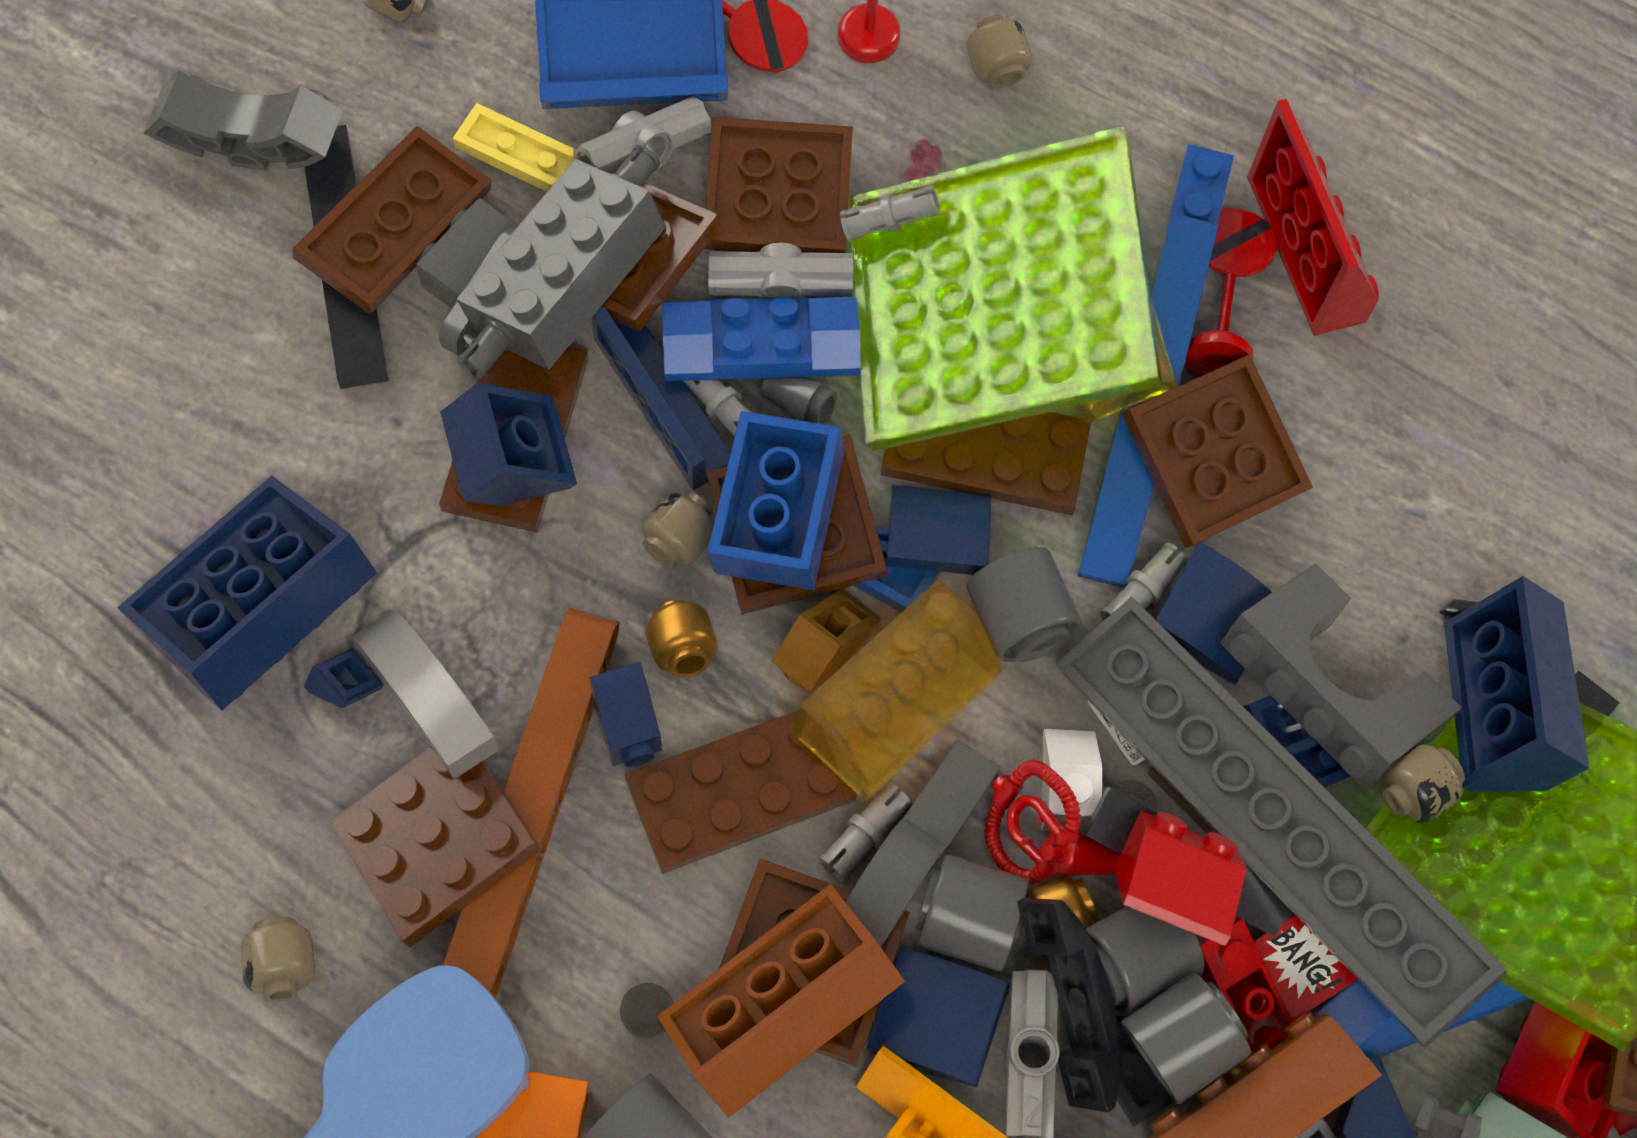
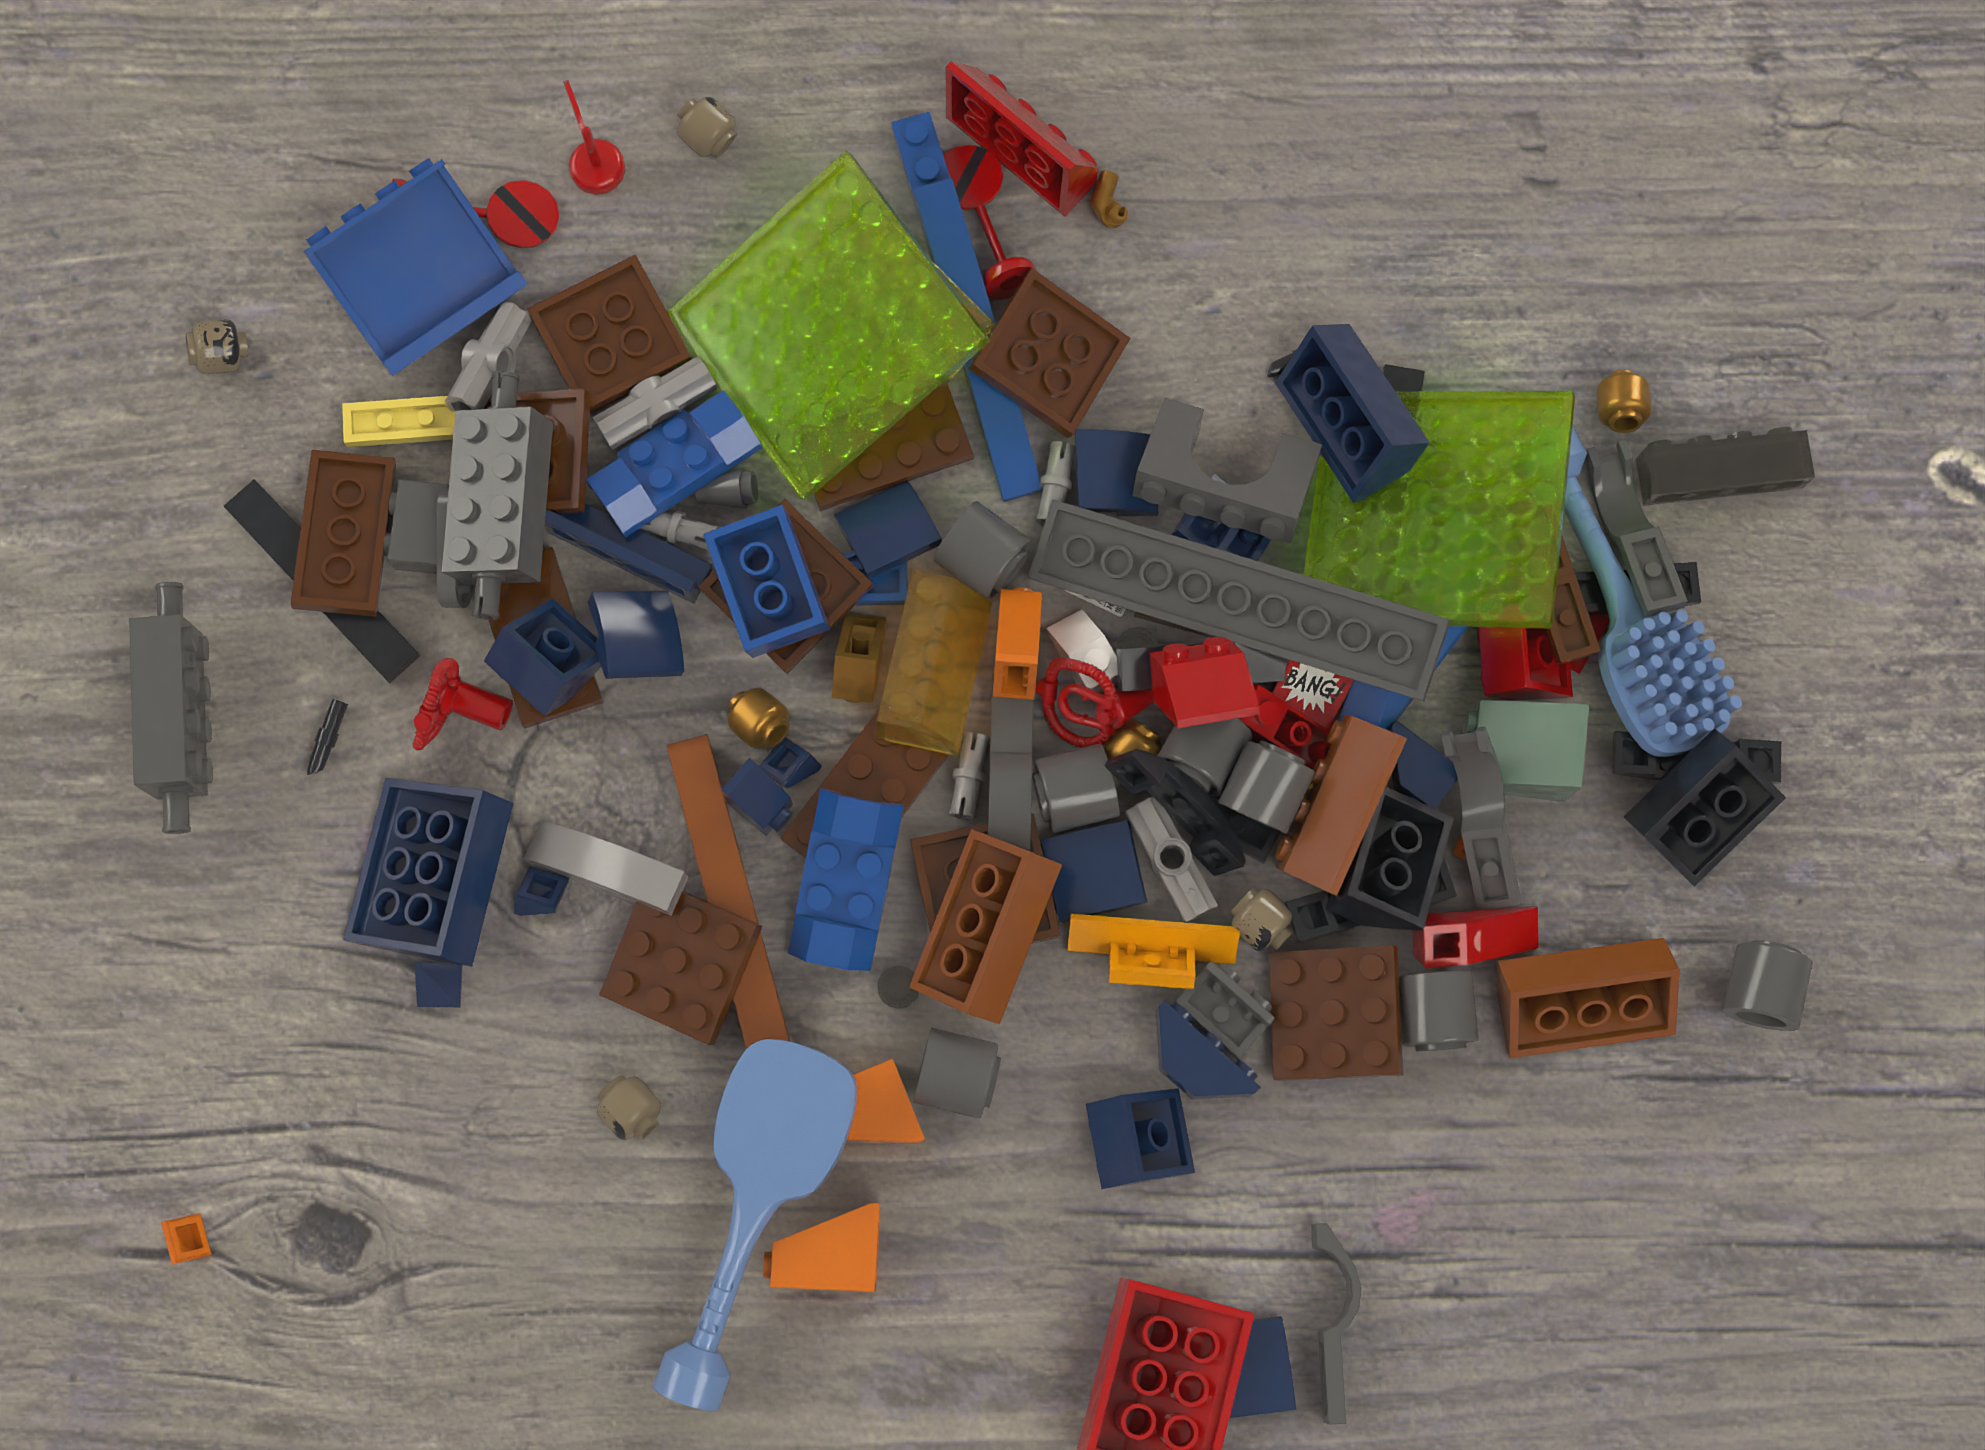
camera: 30 degrees left, 10 degrees up
(108, 280) = (170, 708): none -> dark grey brick
(177, 709) = (438, 984): none -> dark blue slope
(243, 402) = (326, 736): none -> black piece
(244, 126) = (183, 527): dark grey brick -> none
(391, 437) = (457, 698): none -> red piece
(612, 479) = (636, 634): none -> dark blue slope
(662, 860) = (845, 881): none -> blue piece
(678, 529) = (705, 640): dark tan head -> none
(685, 705) = (789, 763): none -> dark blue slope
(890, 212) = (709, 310): light grey pin -> none
(928, 160) = (707, 245): clear pink arm -> none
(1001, 722) = (1017, 643): none -> orange slope
(1363, 343) = (1103, 202): none -> pearl gold arm
(1423, 783) = (1325, 516): dark tan head -> none

